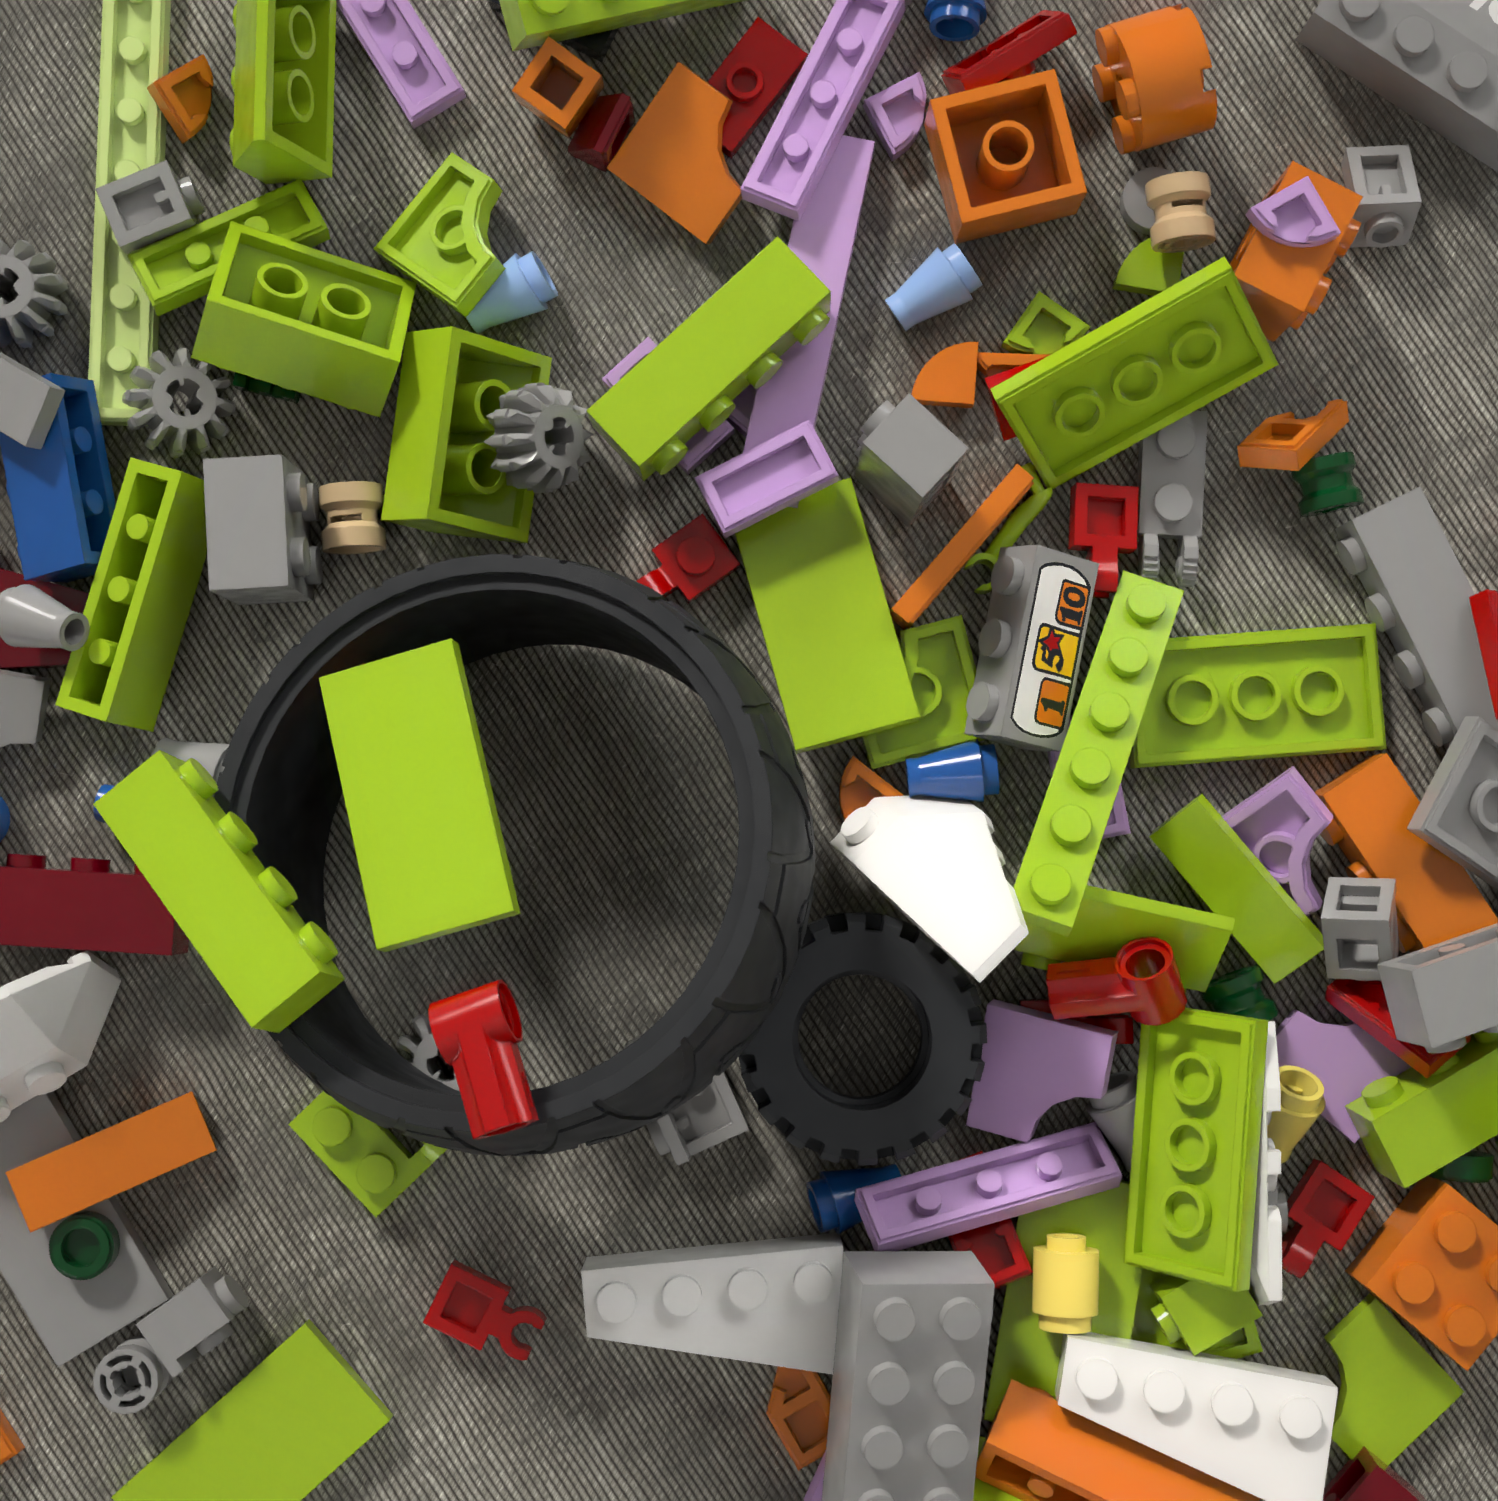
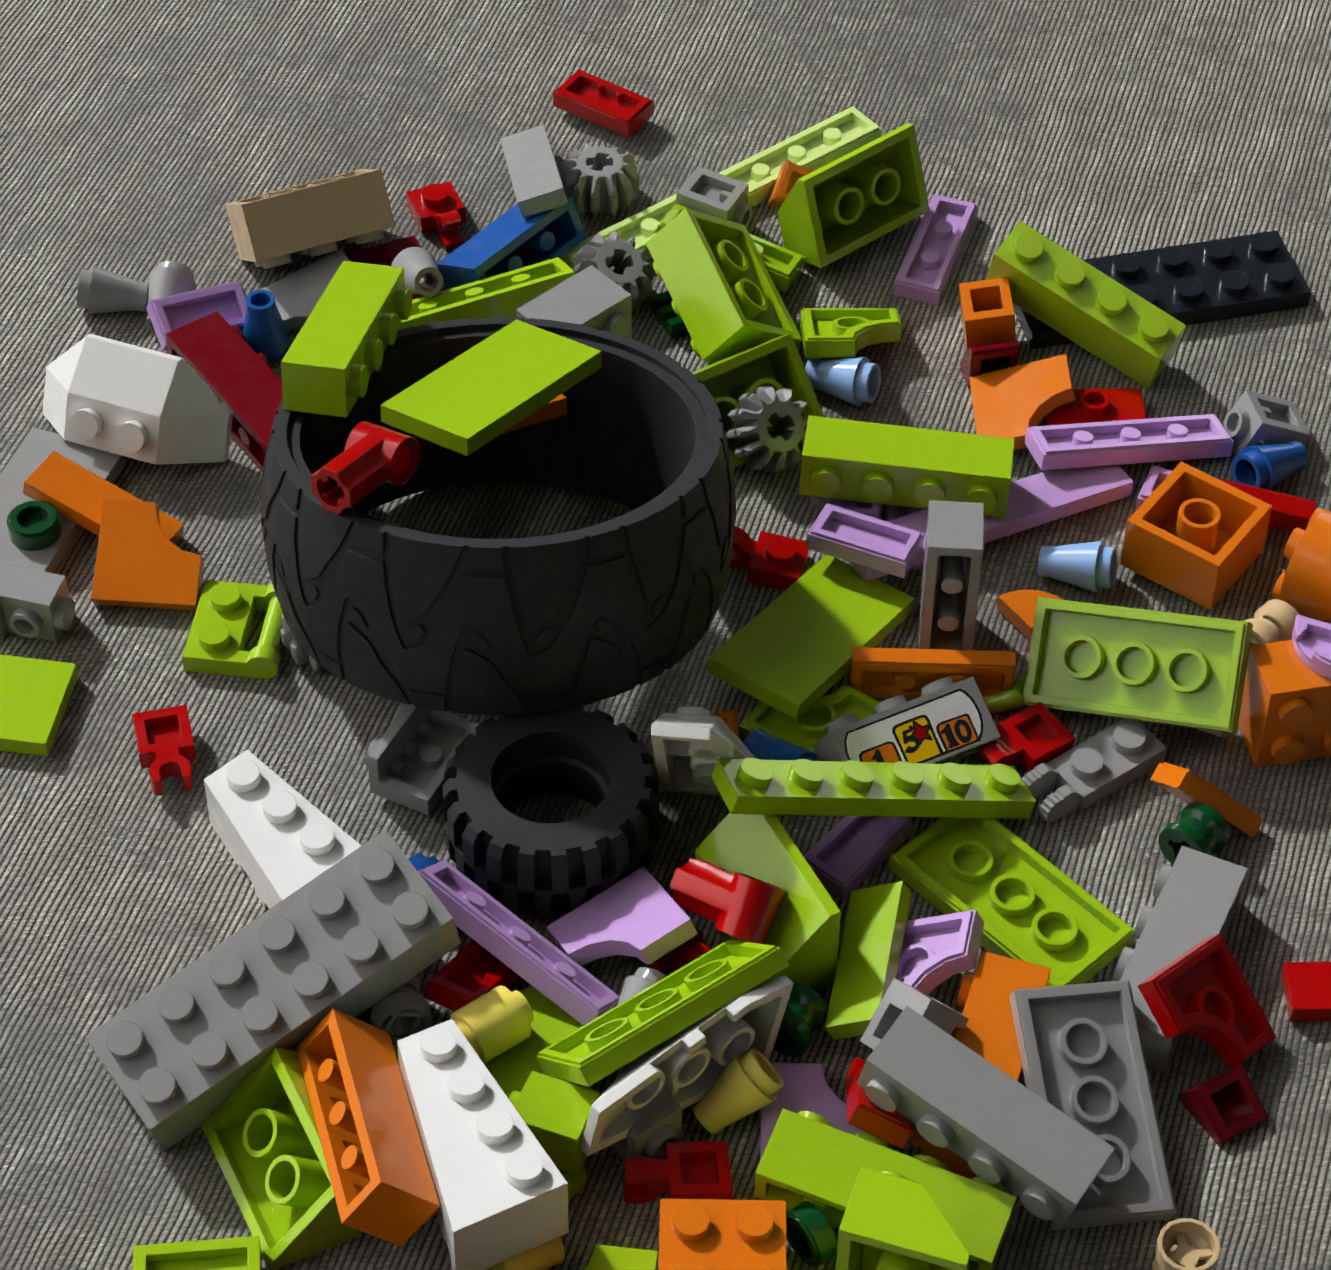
camera: 50 degrees right, 40 degrees down
(222, 1176) = (140, 564): none -> orange tile

